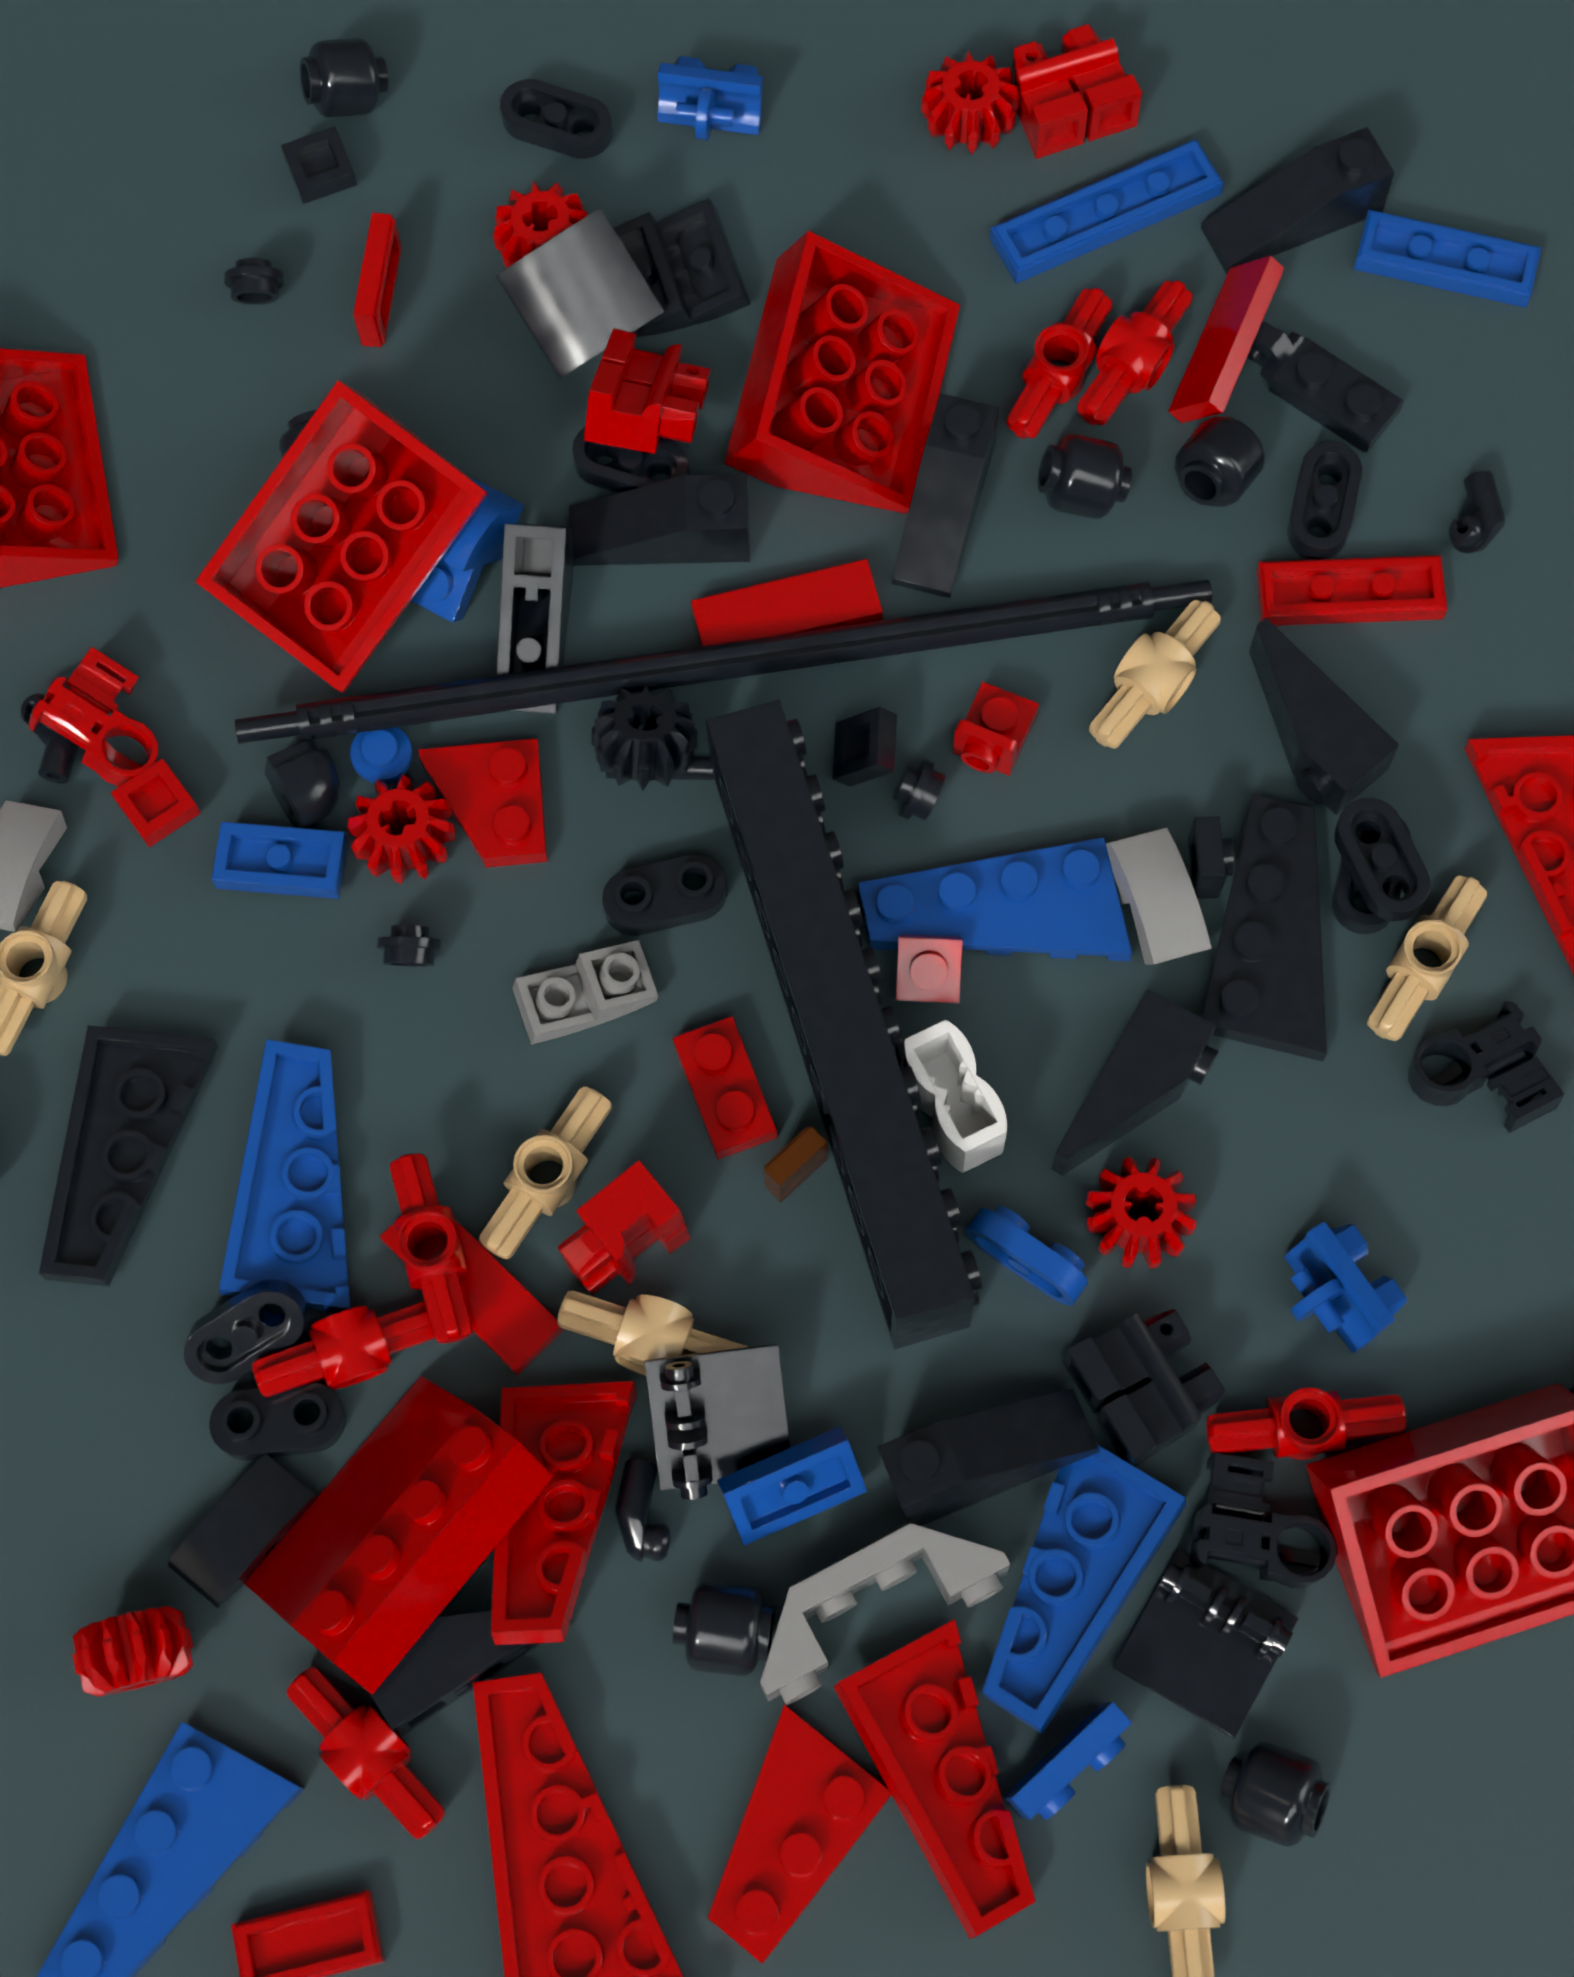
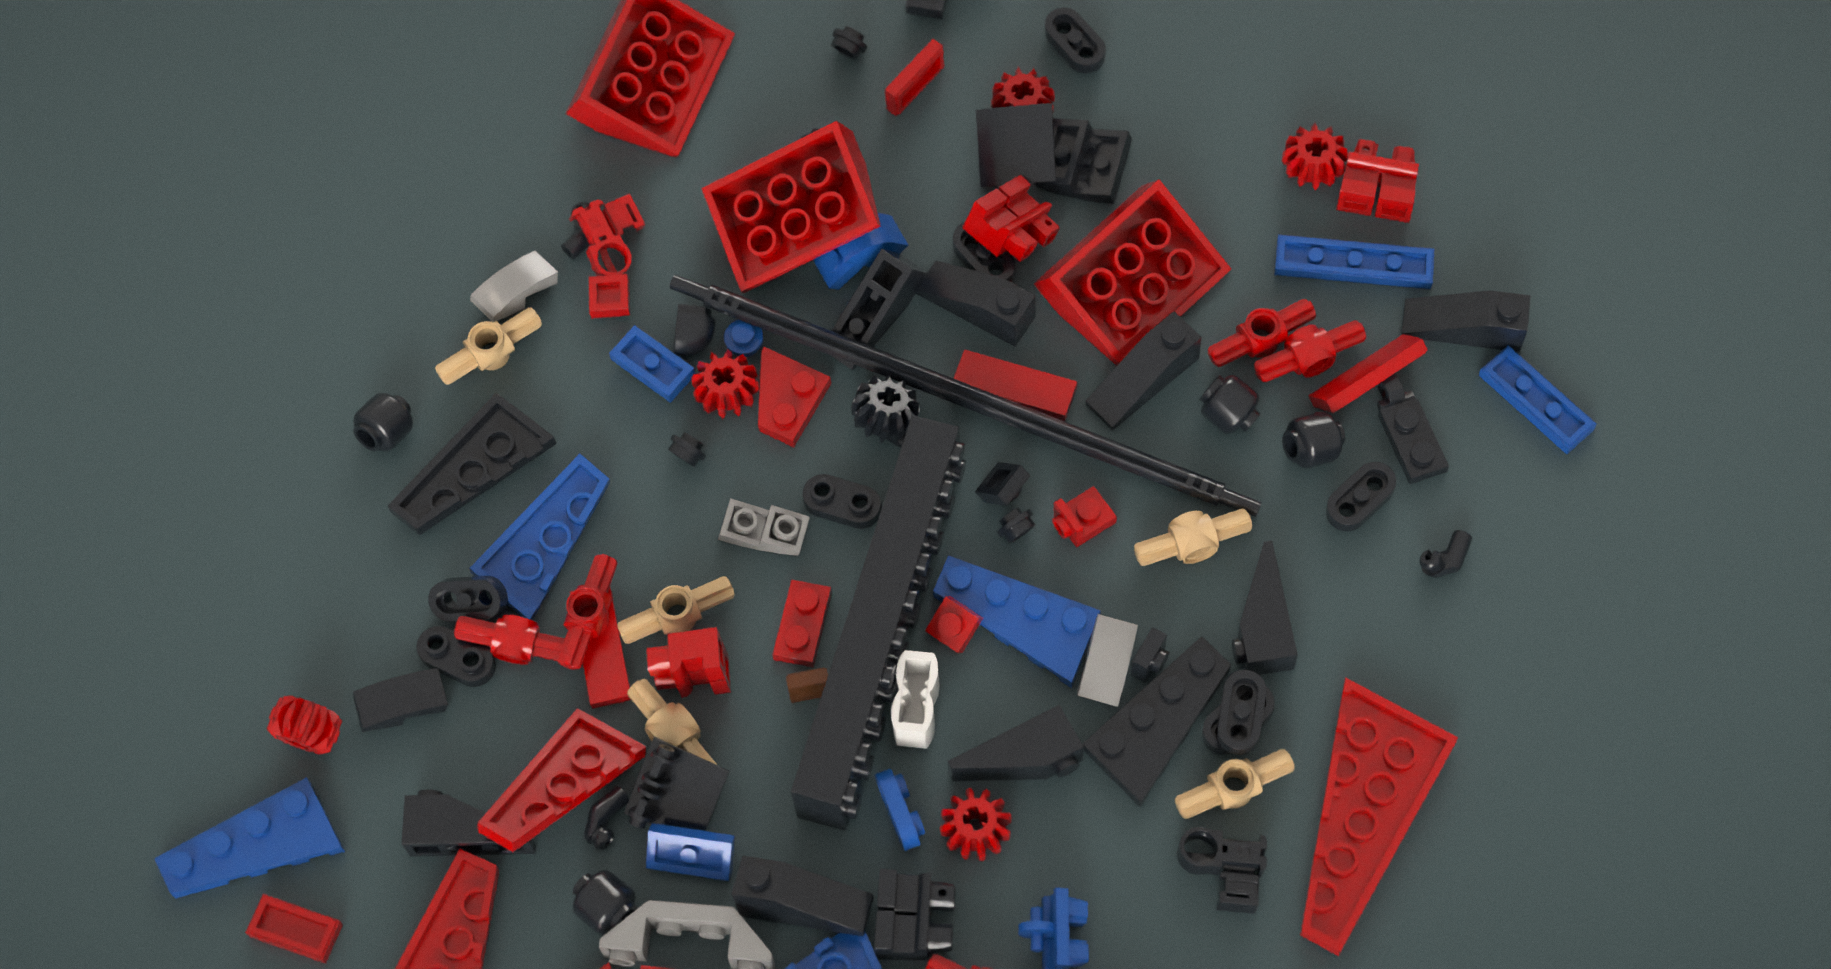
camera: 35 degrees right, 5 degrees down
(365, 1753) = (383, 850): red axle -> none
(399, 1532) = (471, 748): red slope -> none
(710, 97) = (1167, 75): blue hips -> none
(1351, 590) = (1342, 556): red tile -> none

